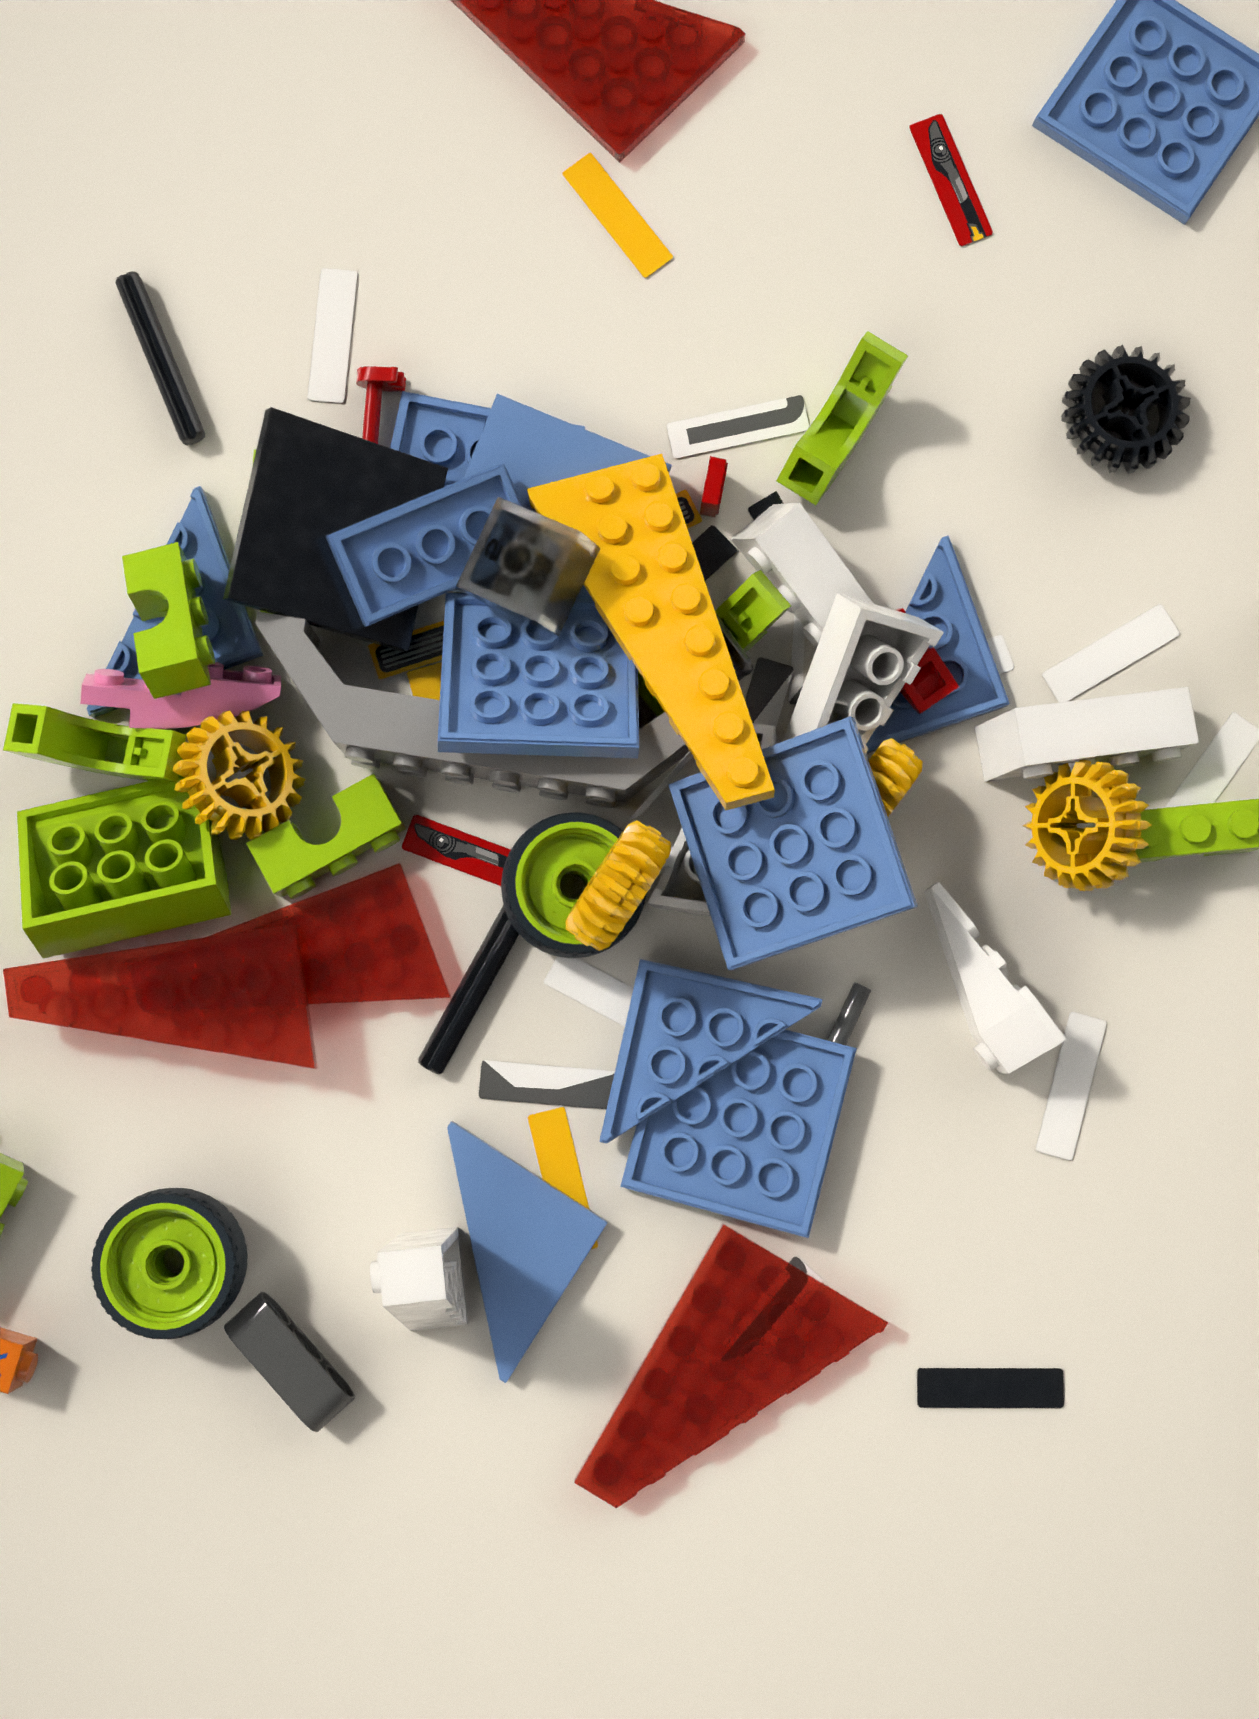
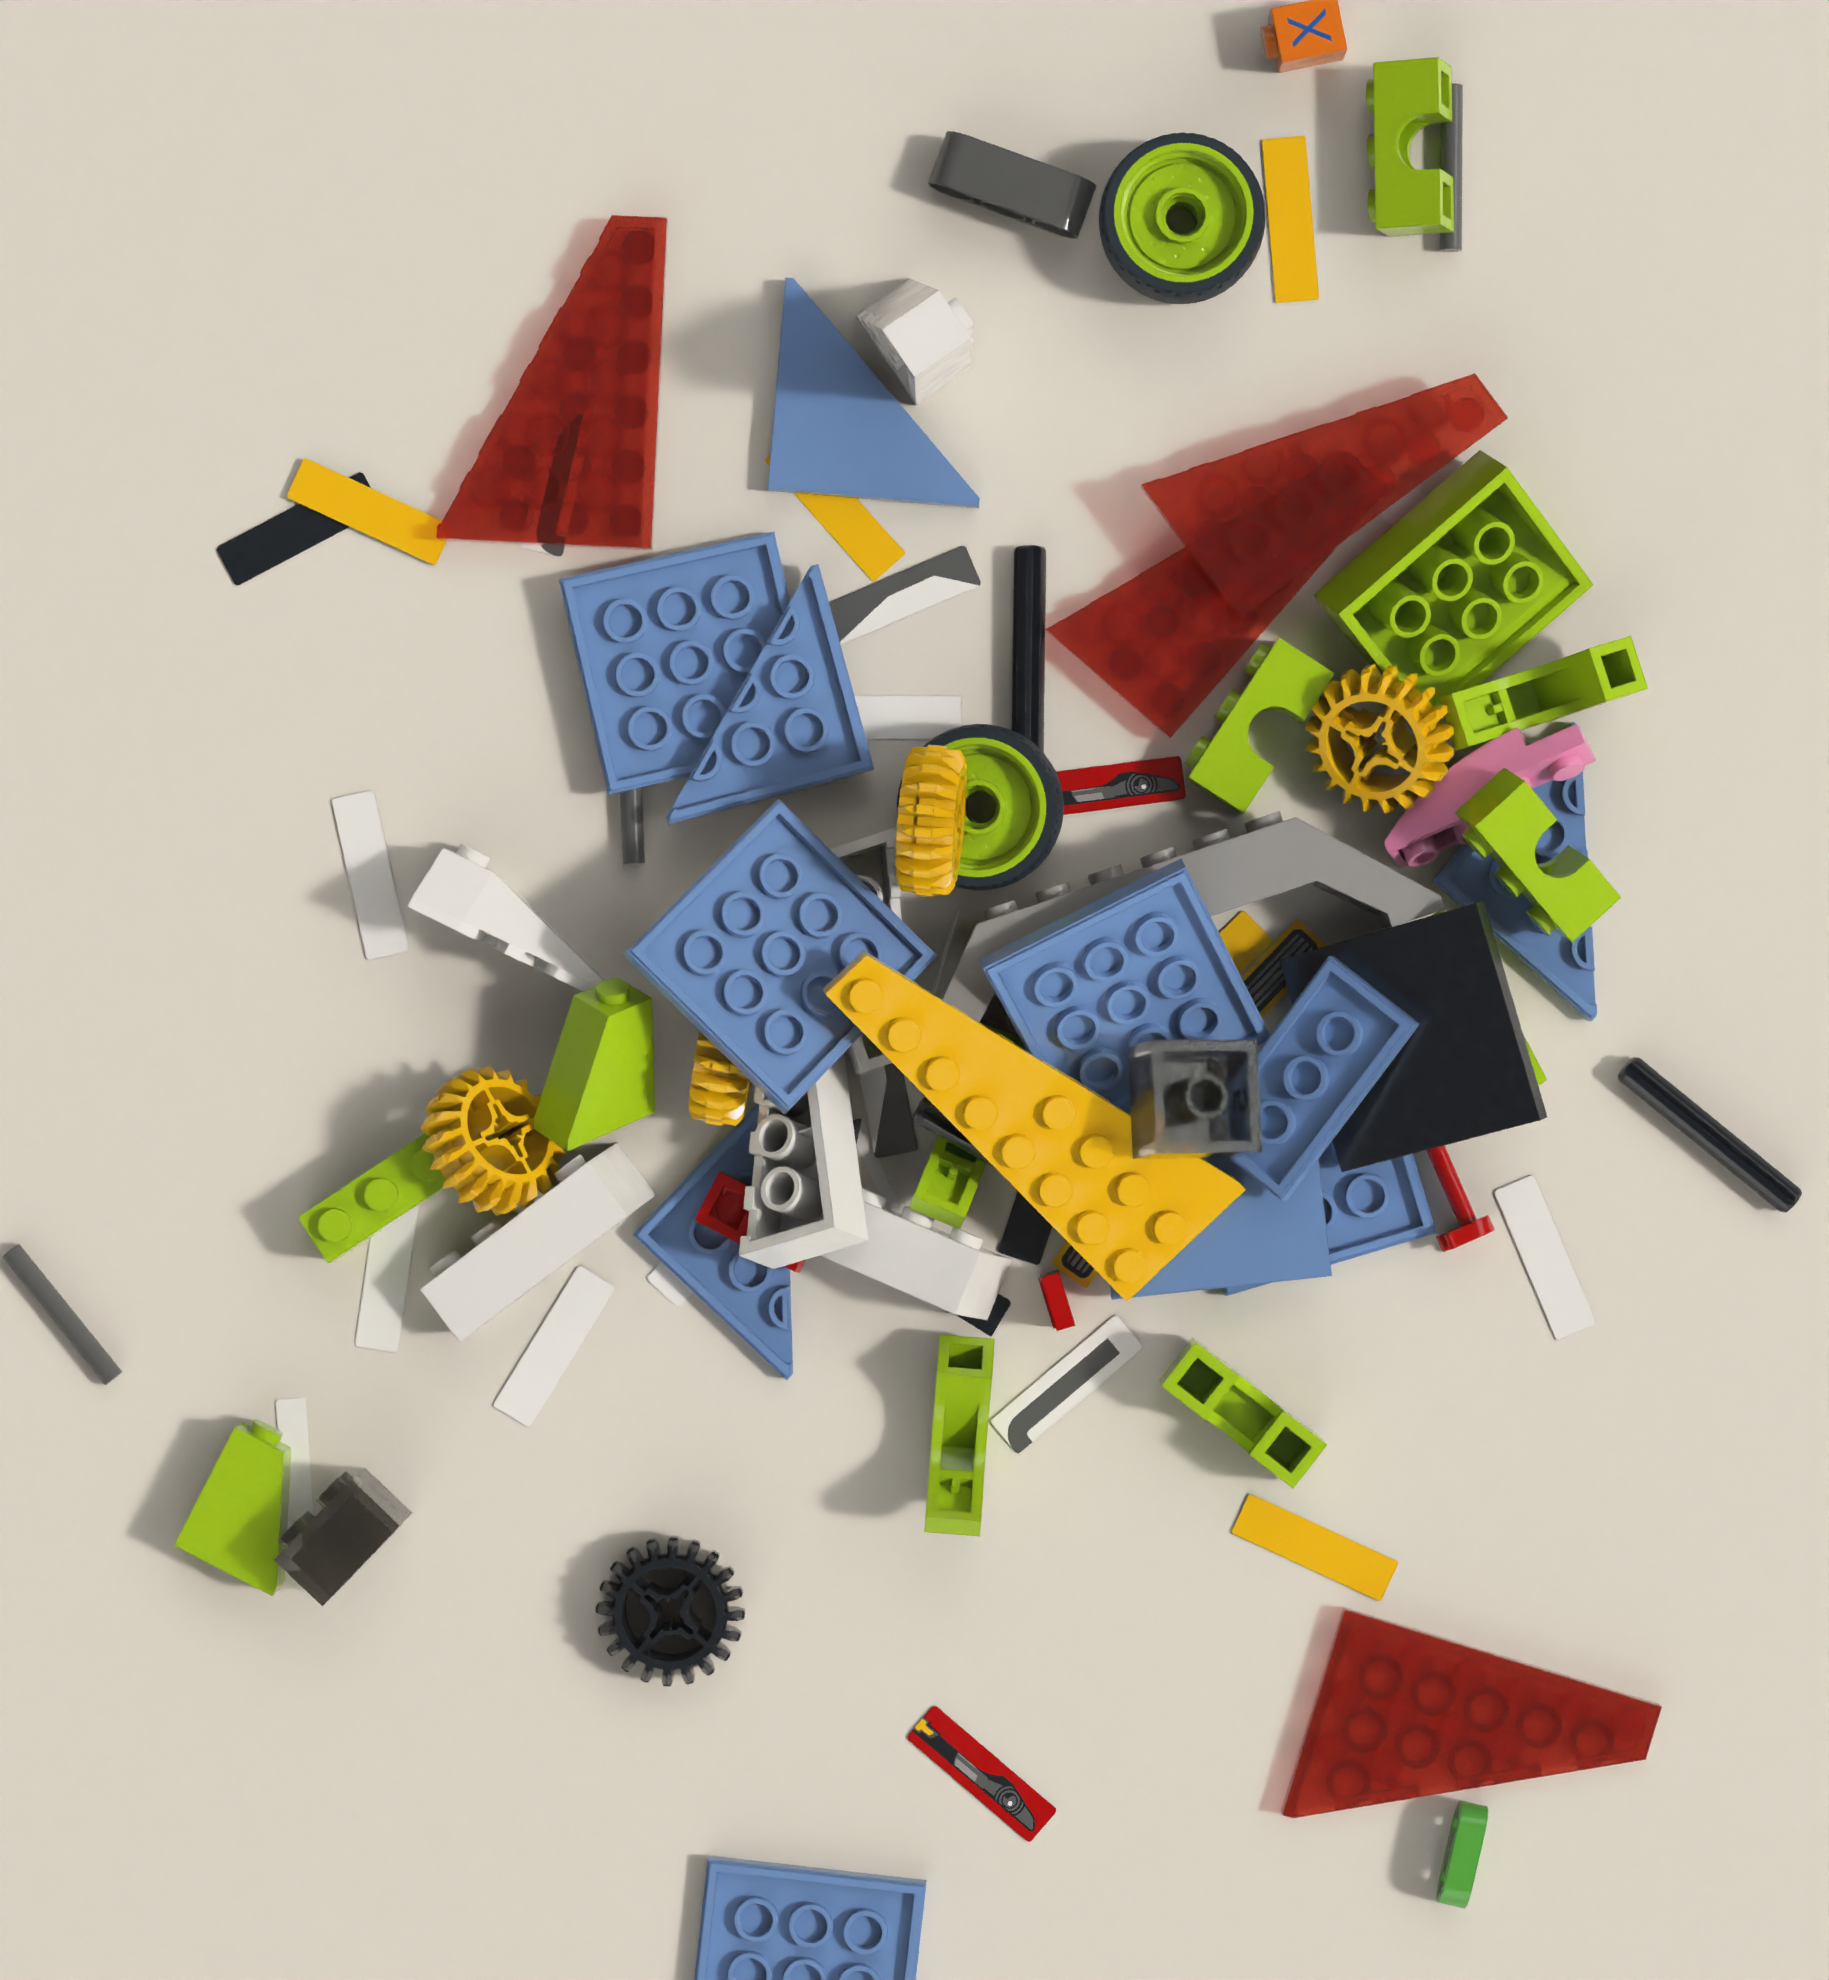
camera: 155 degrees right, 5 degrees up
(91, 1213) = (1290, 219): none -> yellow sticker
(613, 324) = (1242, 1412): none -> lime arch
(930, 1373) = (367, 511): none -> yellow sticker
(974, 837) = (600, 1066): none -> lime slope

